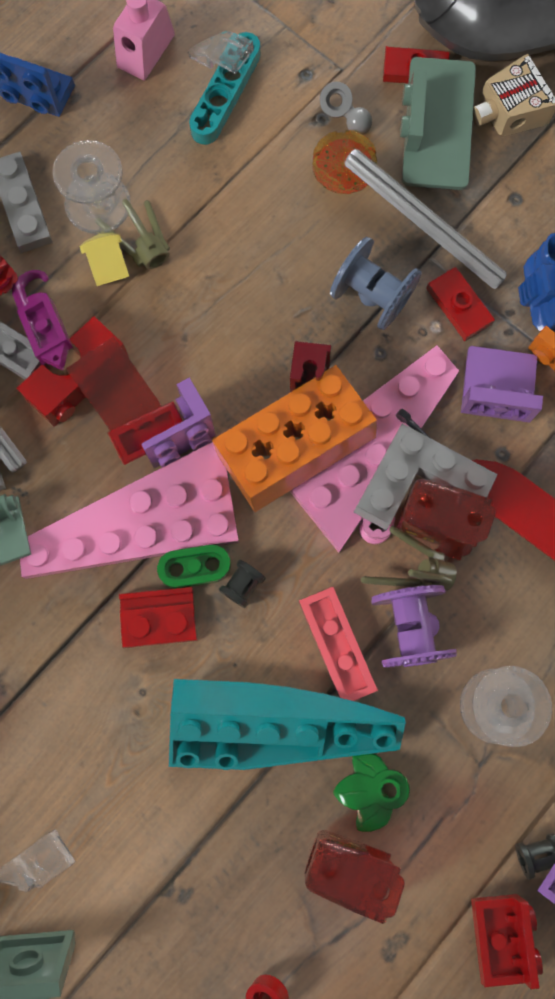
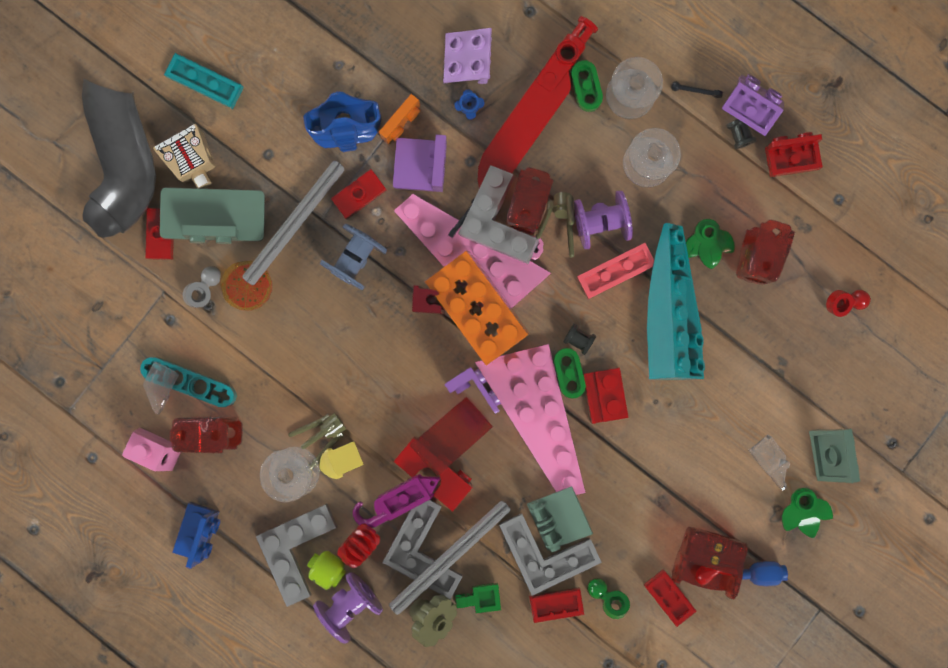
camera: 90 degrees left, 10 degrees up
(130, 436) = (478, 413): red plate -> none
(156, 89) = (205, 434): none -> clear red piece

